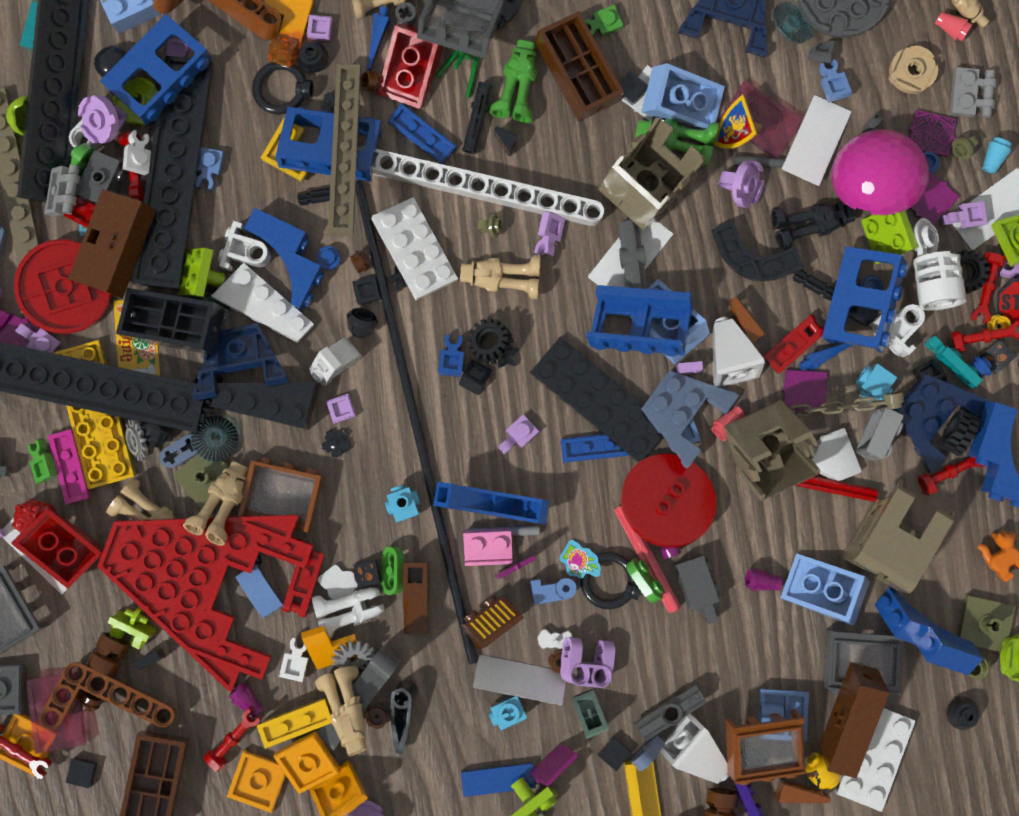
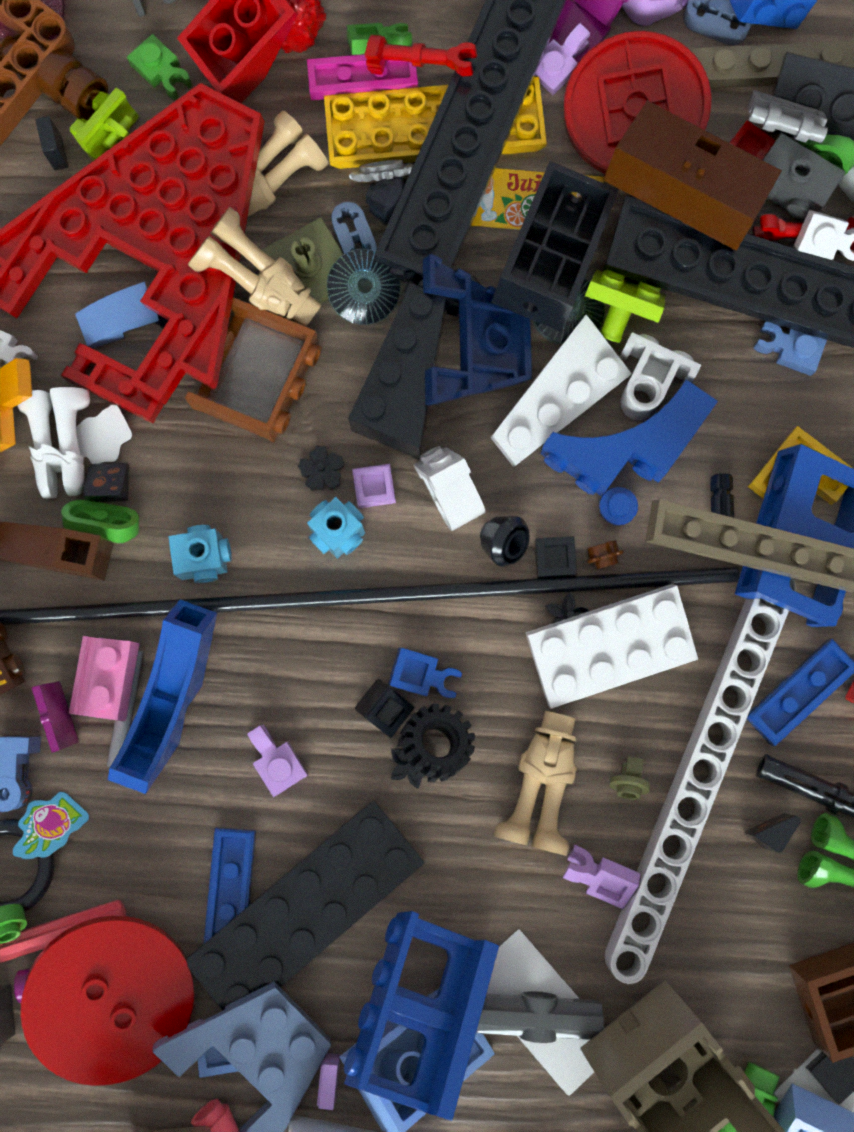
camera: 100 degrees right, 5 degrees down
(55, 454) = (379, 51): none -> red piece
(81, 605) = (158, 65): none -> bright green plate
(381, 425) = (337, 541): none -> medium azure brick

